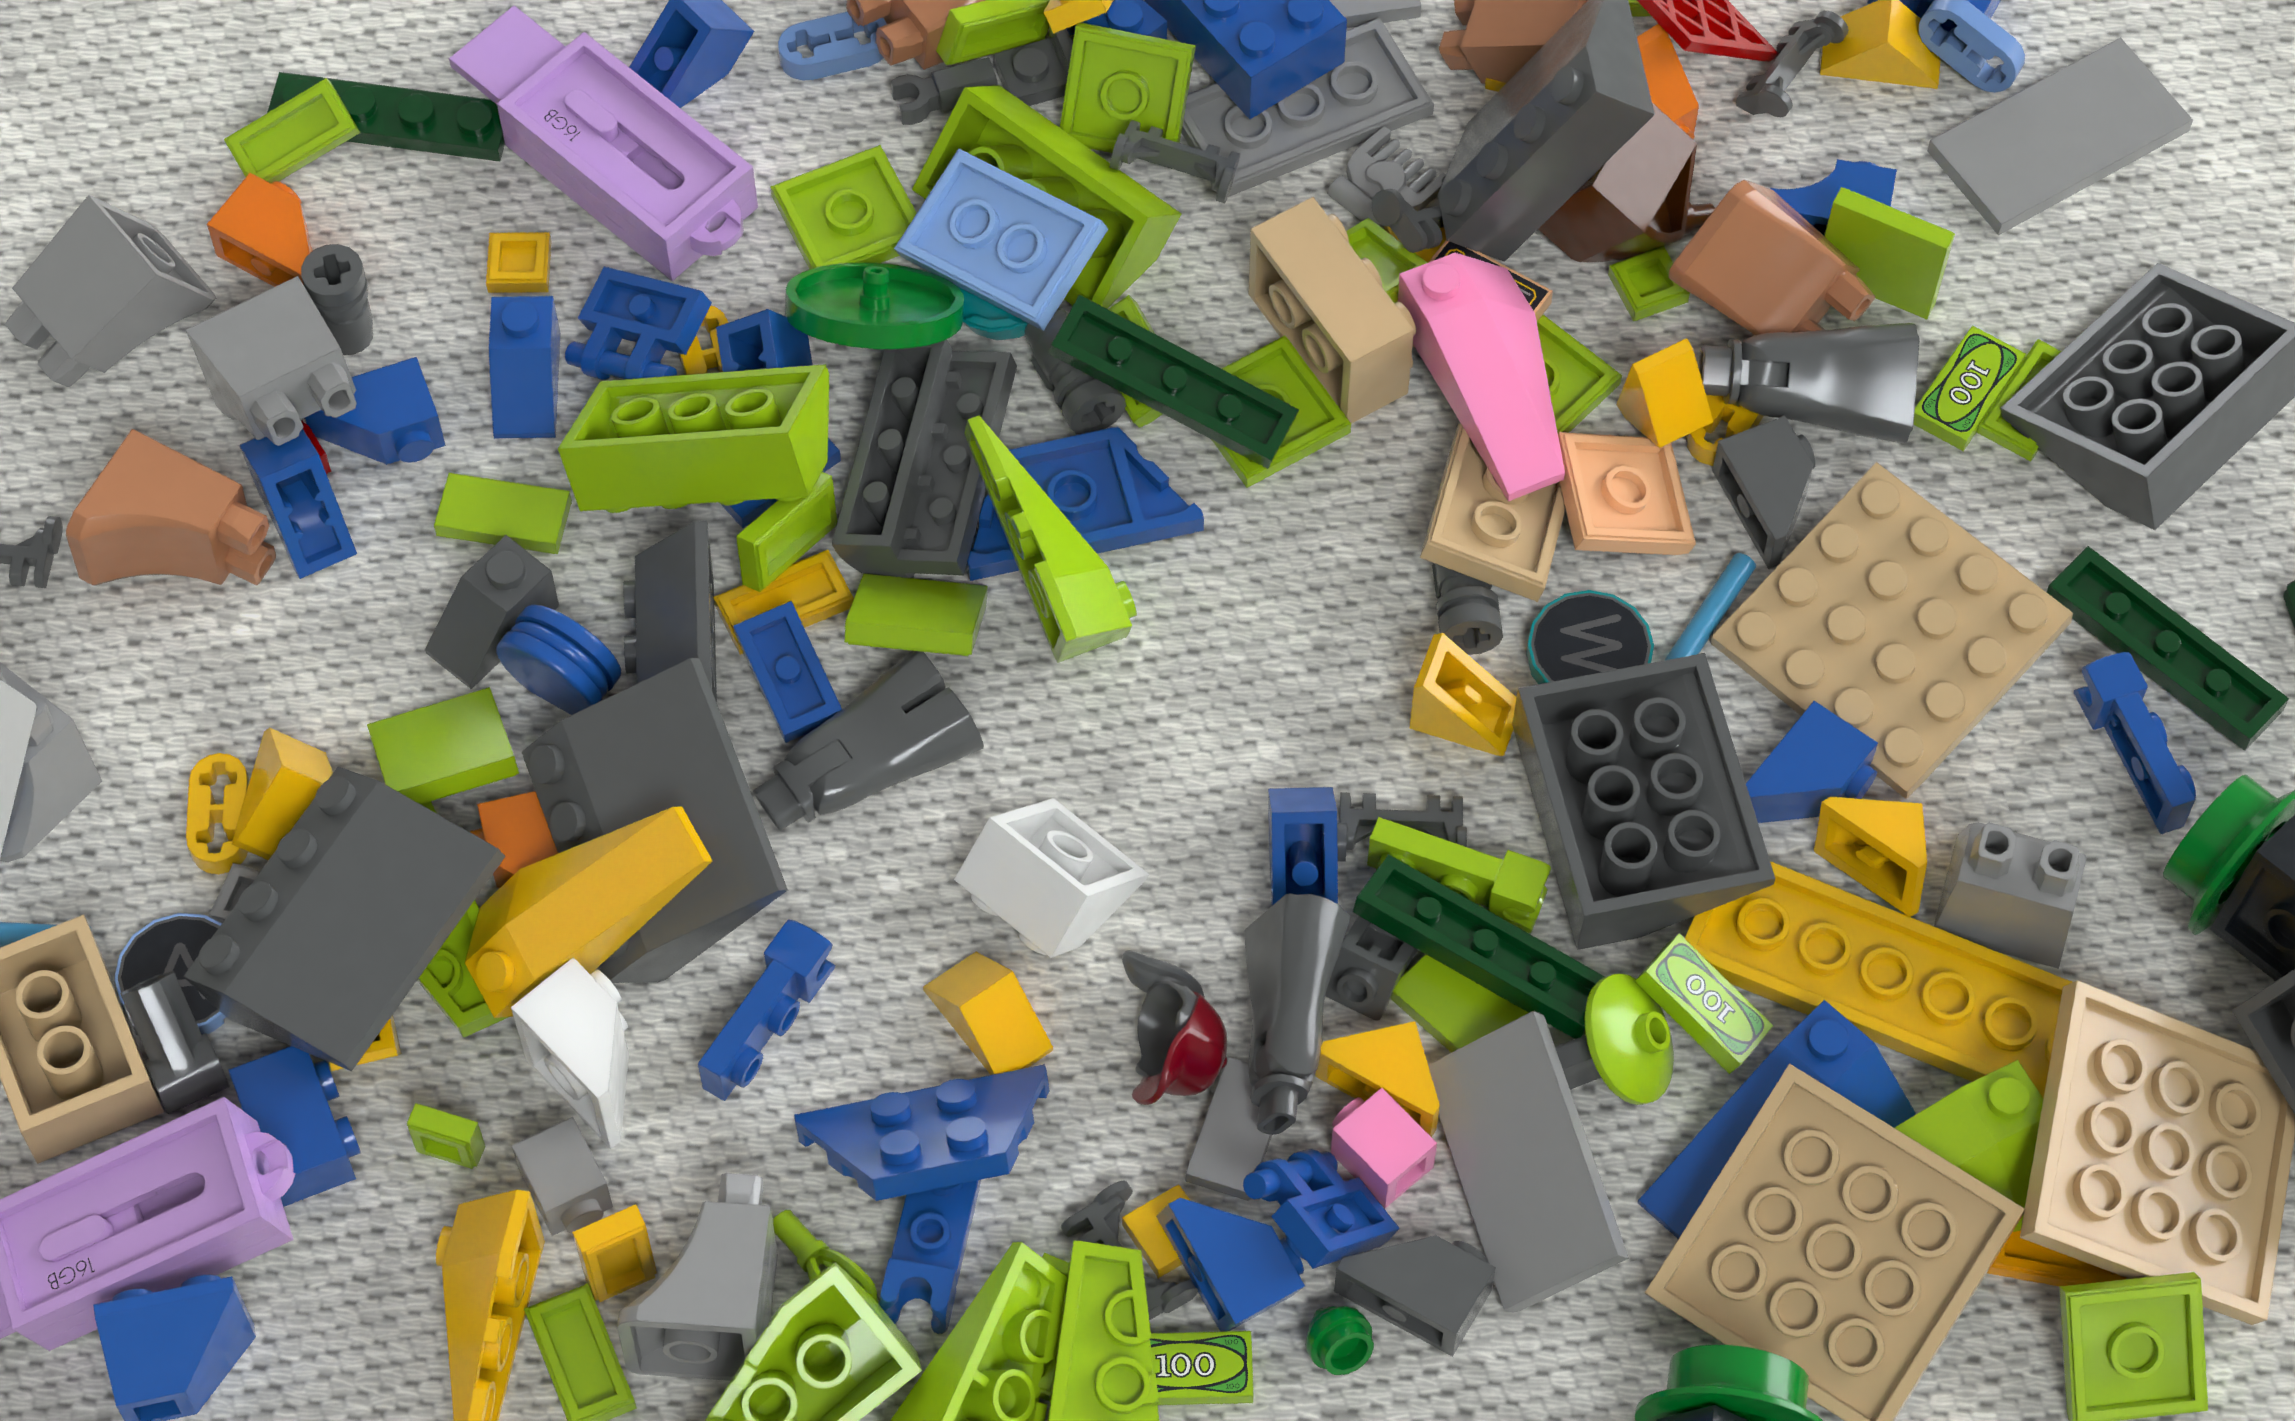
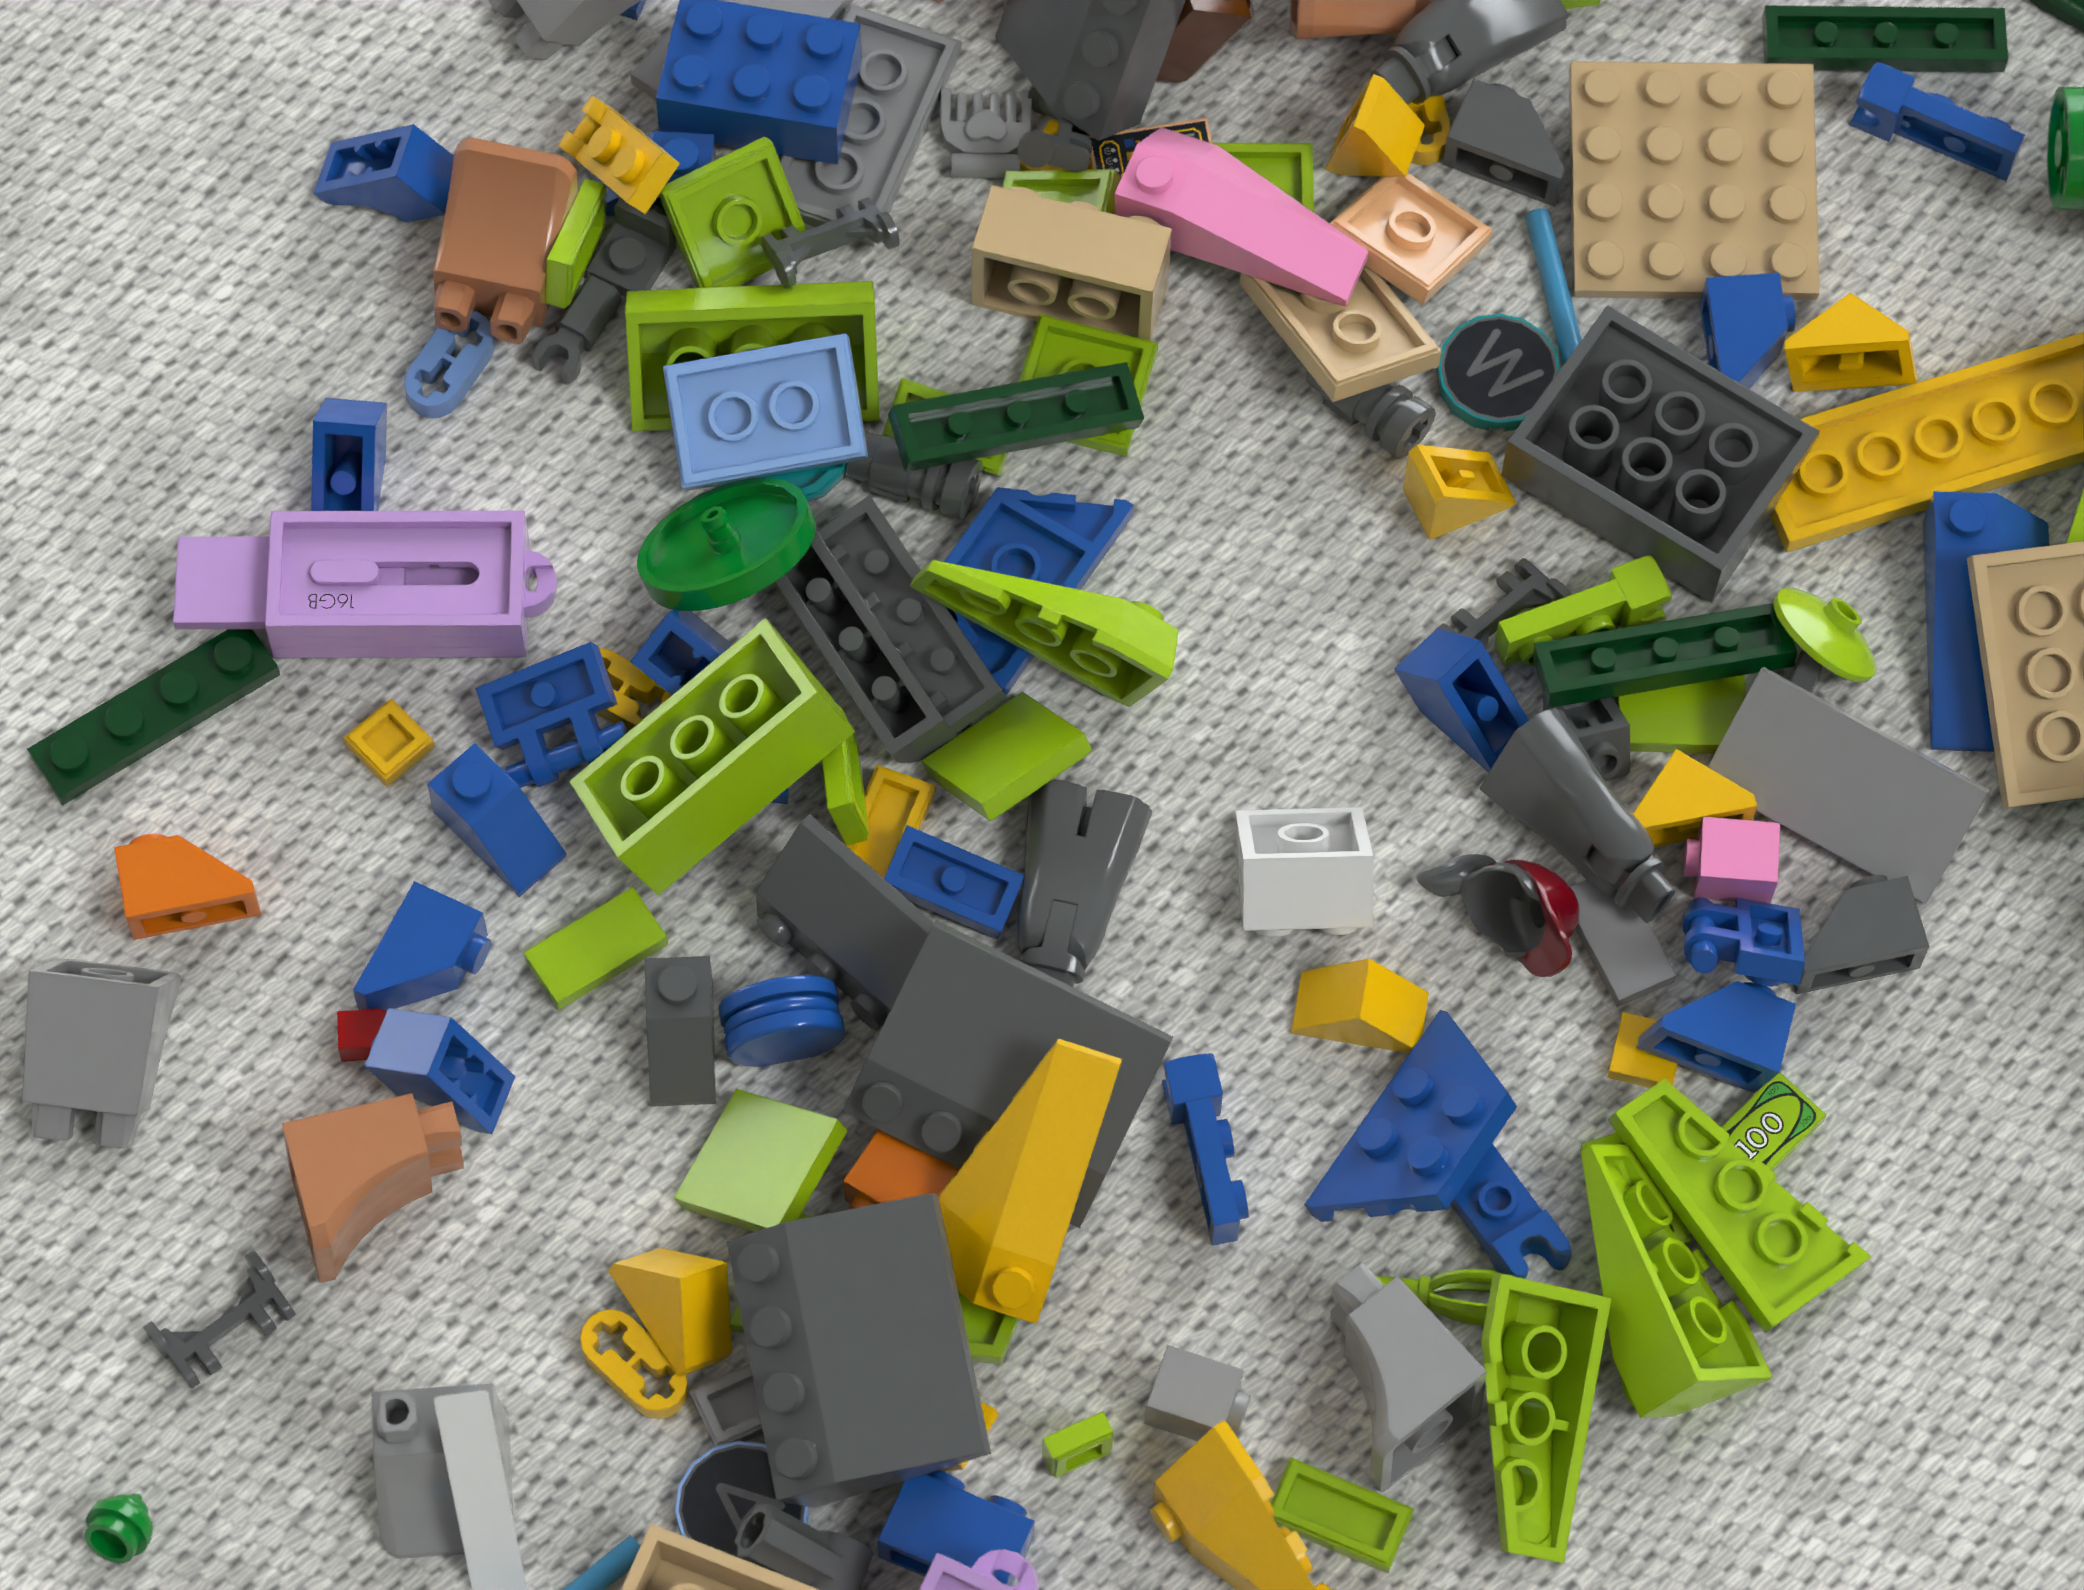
camera: 45 degrees left, 5 degrees up
(273, 363) = (330, 979): light grey hips -> none
(293, 134) = (101, 791): lime tile -> none
(340, 292) = (304, 884): dark grey axle -> none
(578, 1044) = (1124, 1290): white slope -> none
(615, 1253) = (1306, 1412): yellow tile -> none
(846, 210) = (605, 490): lime tile -> none
(1104, 1219) = (1598, 1086): dark grey piece -> none
(1339, 1339) = (1841, 1022): green plate -> none
(1645, 284) = (1257, 57): lime tile -> none
(1704, 1003) = (1844, 565): lime tile -> none
(2011, 892) = (1967, 302): light grey hips -> none

